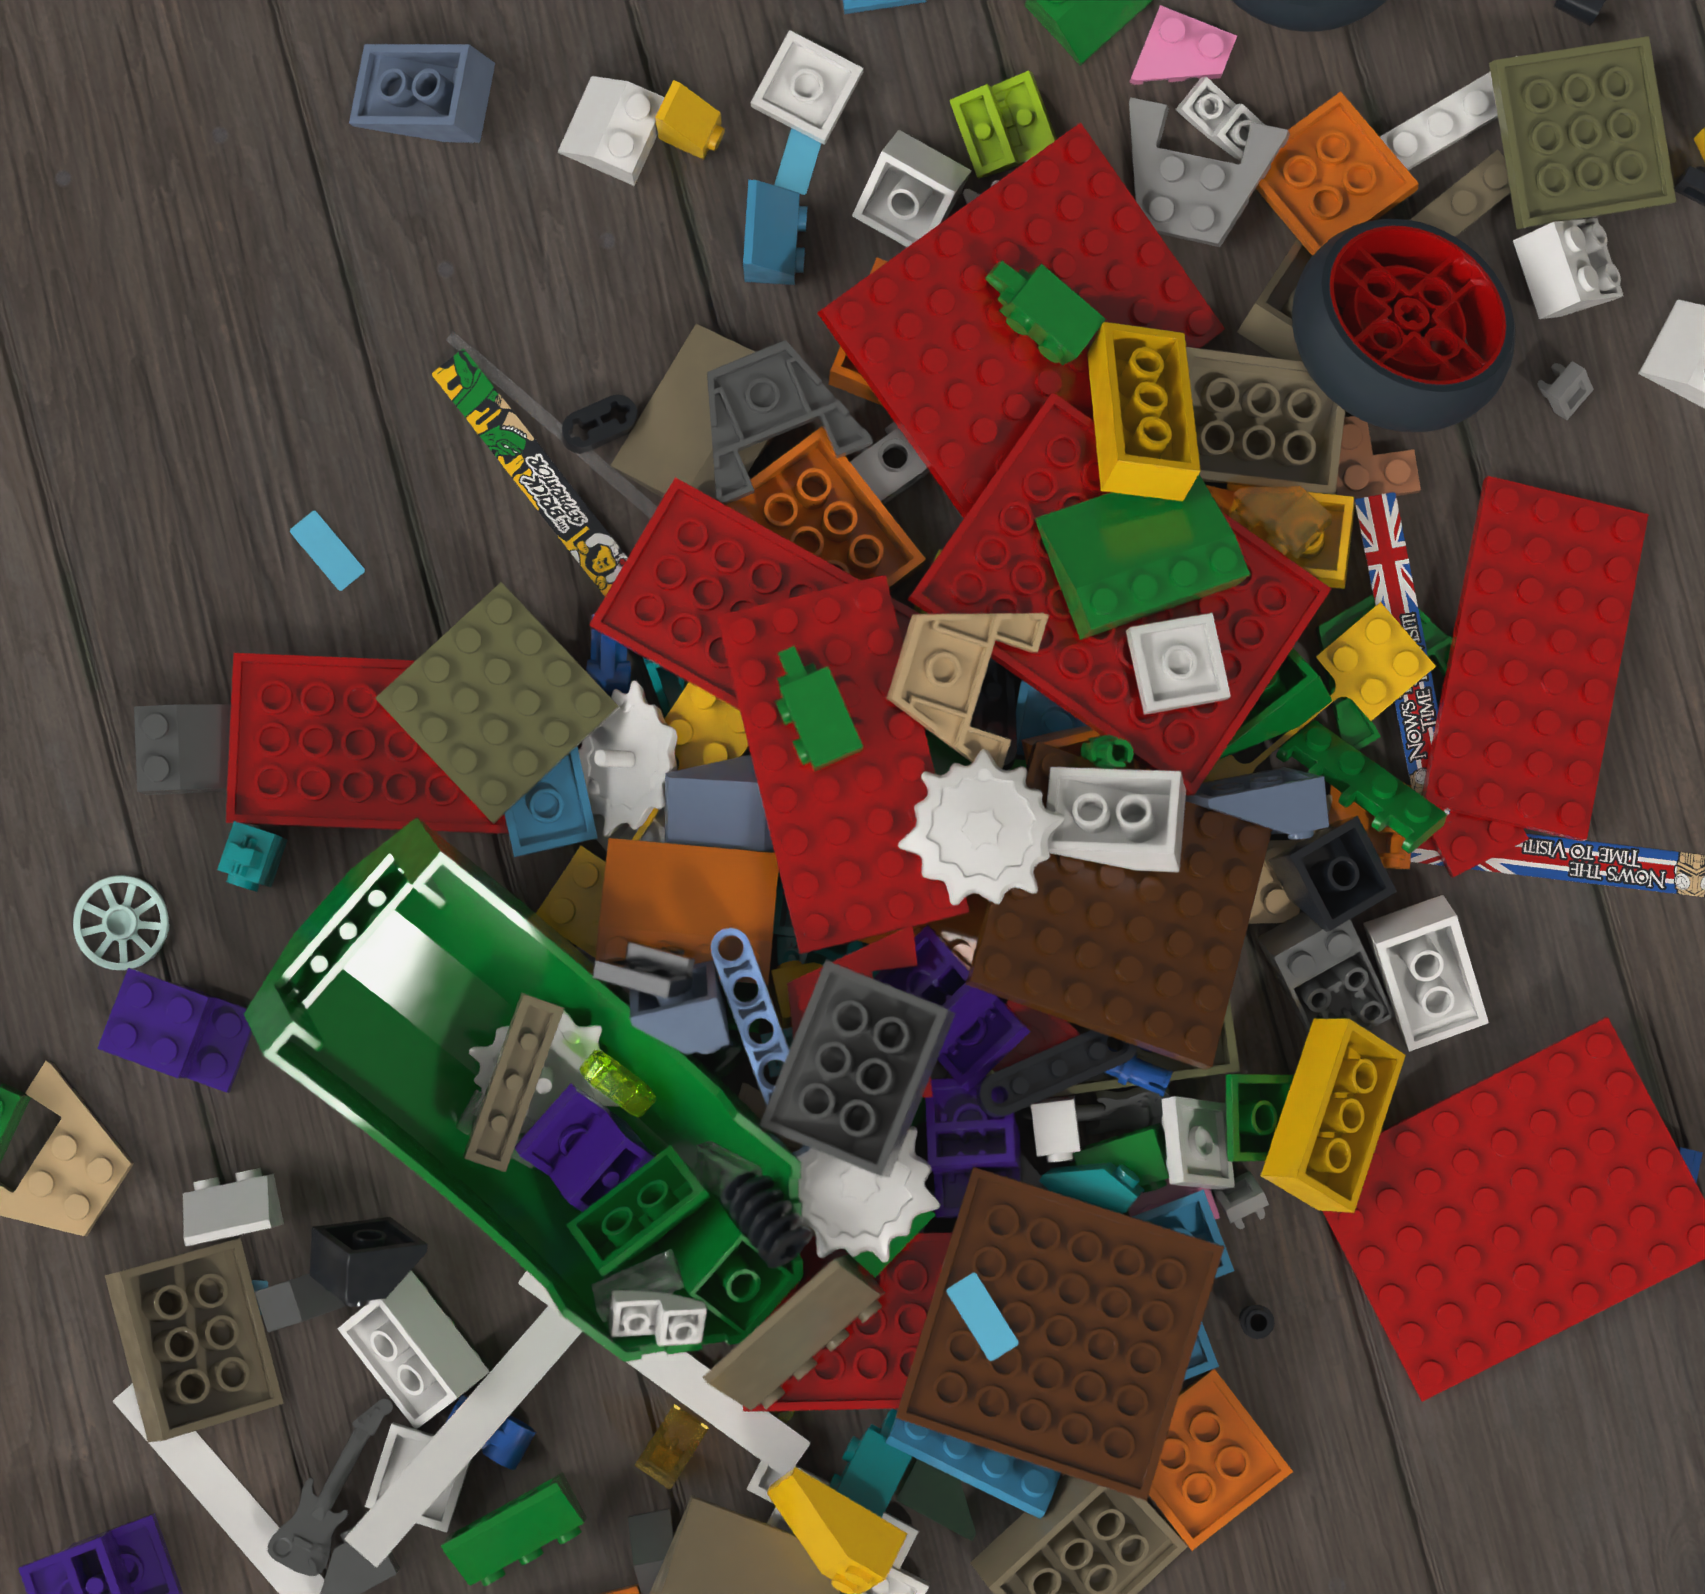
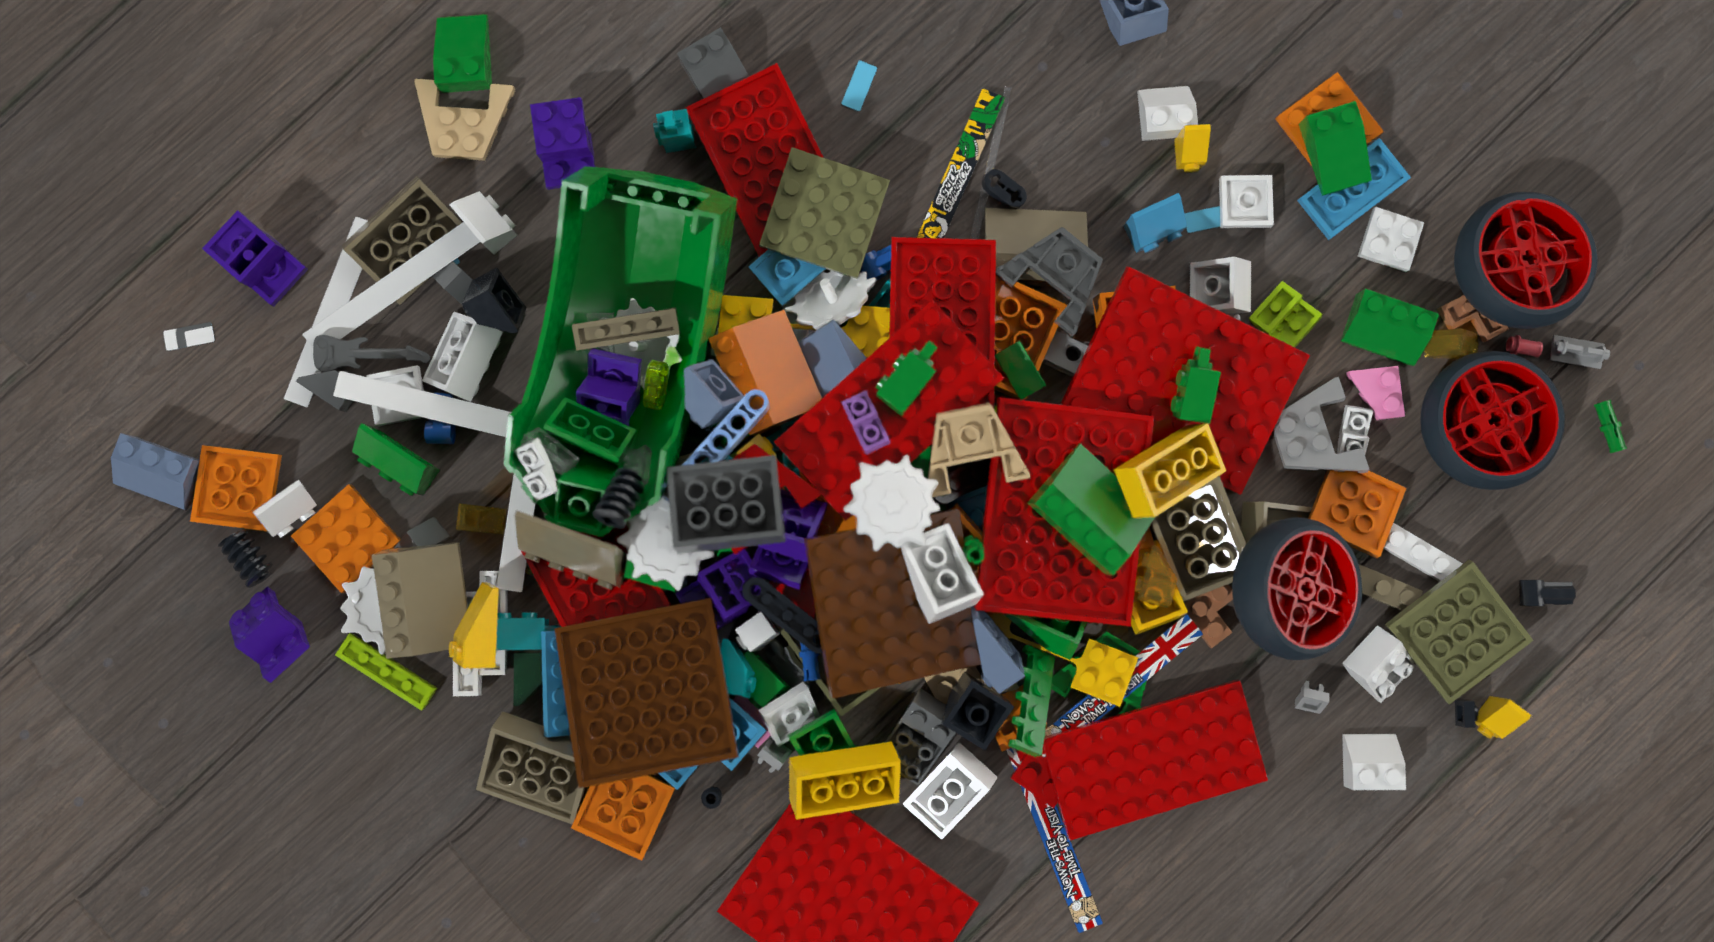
camera: 70 degrees right, 0 degrees up
(121, 922) = (606, 86): light aqua wheel -> none
(252, 1394) = (395, 284): none -> white sticker
(649, 970) = (720, 364): slope -> none
(845, 806) = (865, 422): none -> medium lavender slope
(881, 545) = (1020, 370): none -> green slope
(982, 1316) = (632, 646): medium azure sticker -> none
(1178, 663) = (1043, 562): white plate -> none

